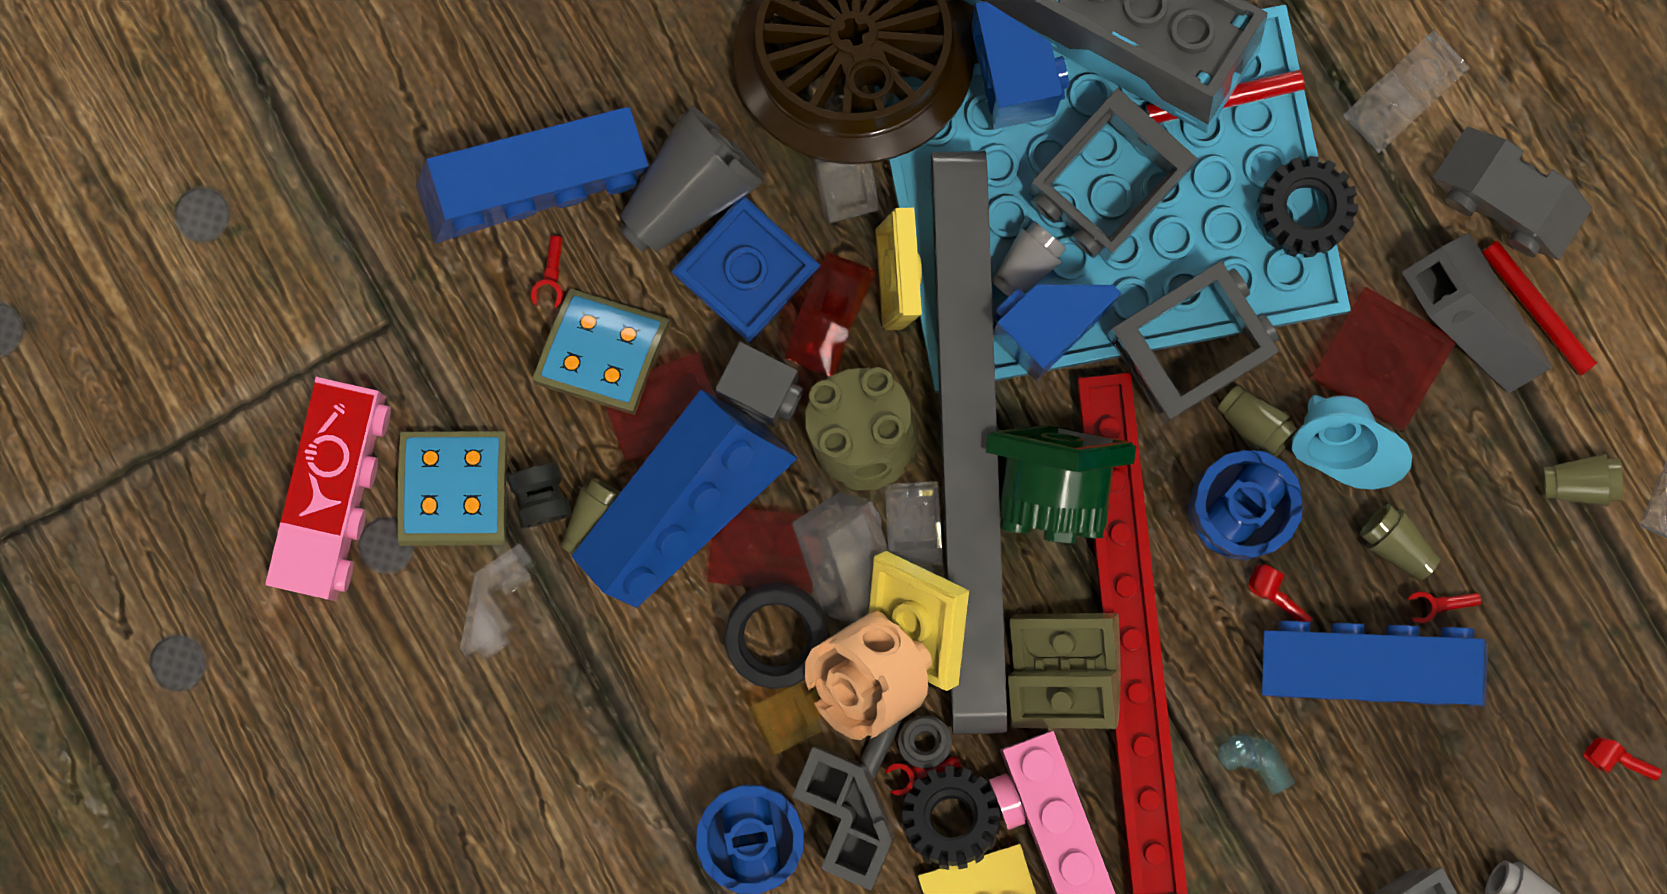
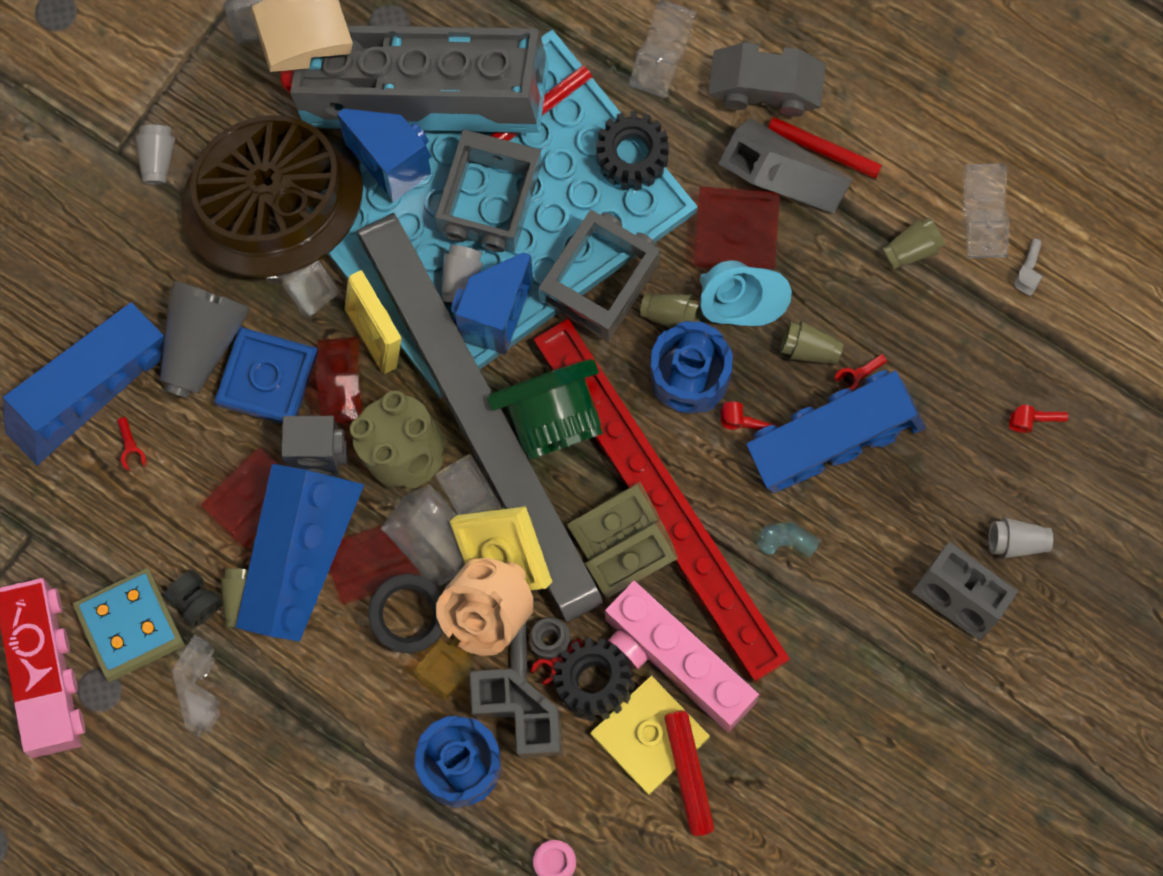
camera: 25 degrees left, 10 degrees down
(601, 351) = (190, 479): dark azure slope -> none

